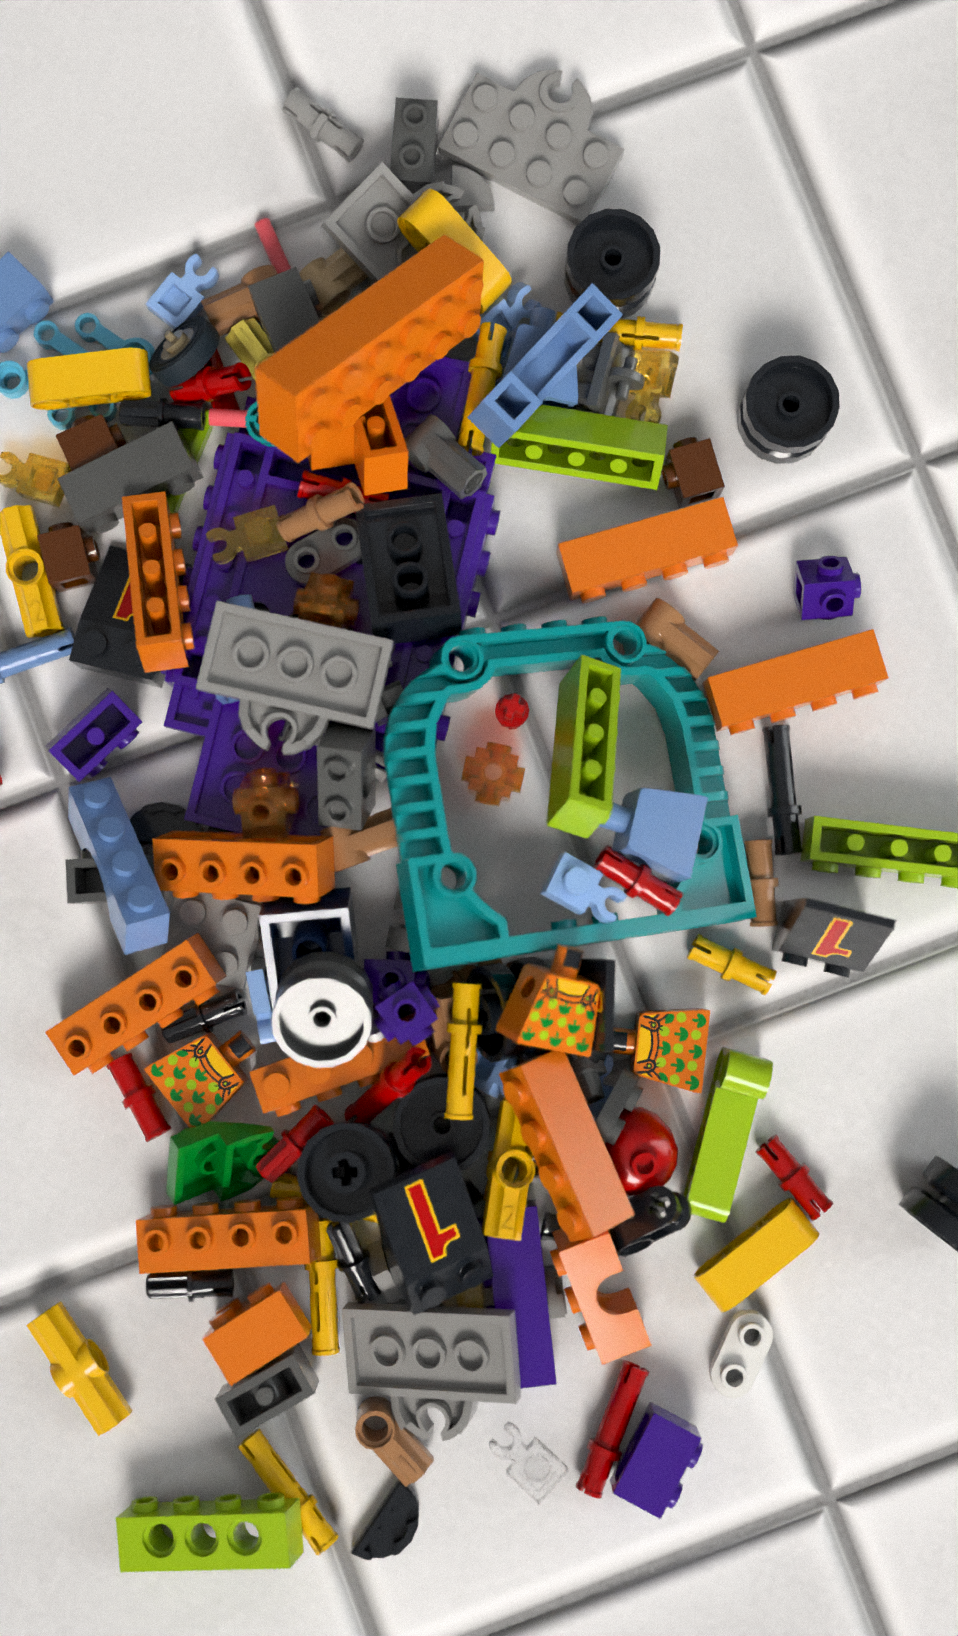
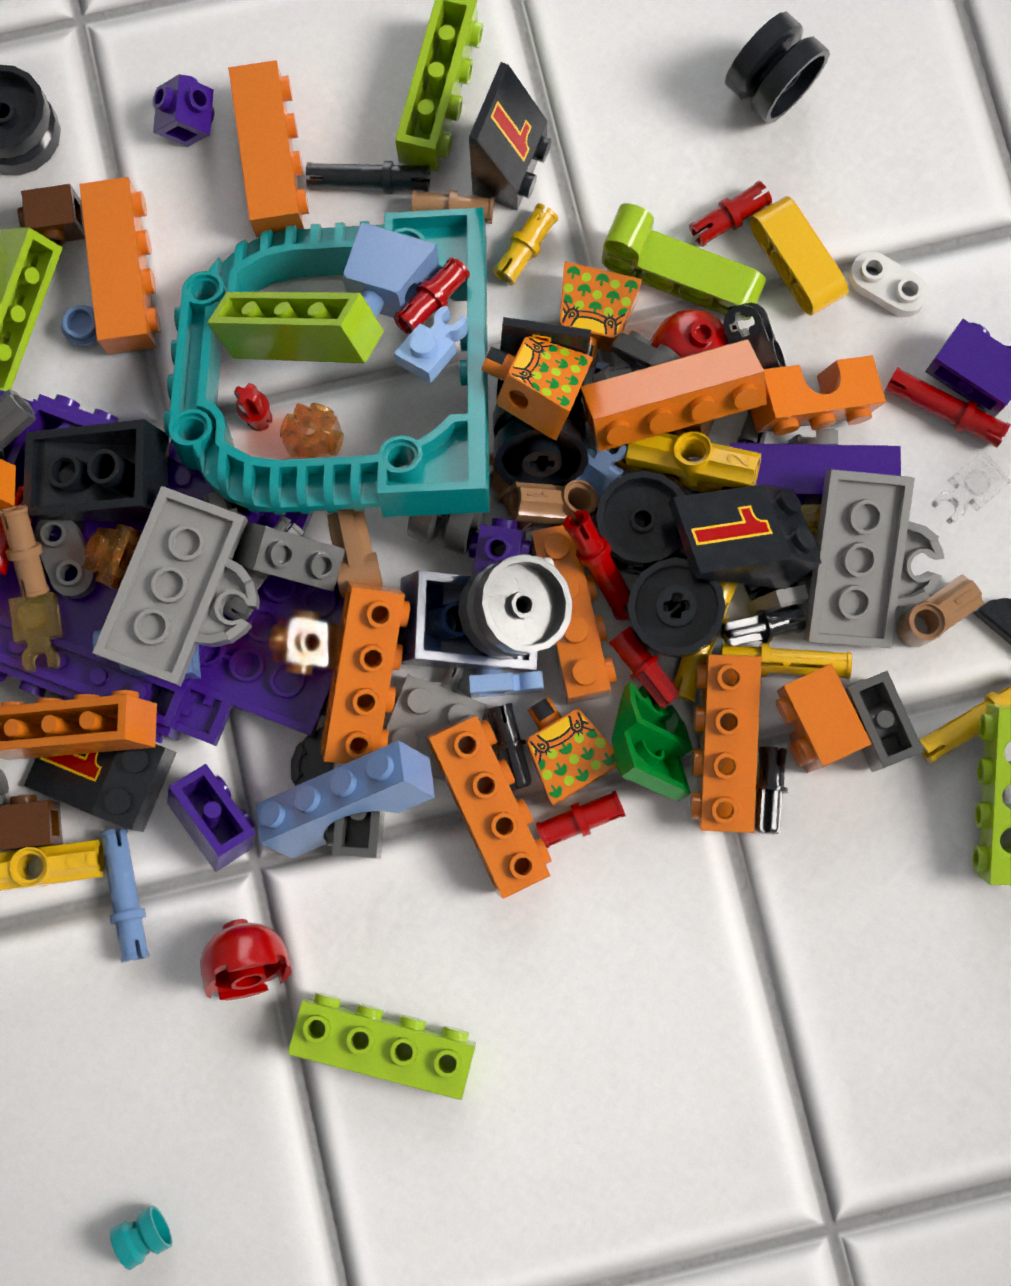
camera: 80 degrees left, 5 degrees down
(79, 1368) = (841, 909): yellow piece -> none
(414, 1030) = (539, 540): dark purple brick -> none
(462, 1051) = (572, 484): yellow pin -> none
(581, 520) = (79, 326): none -> medium blue plate
(666, 629) = (200, 255): medium nougat piece -> none

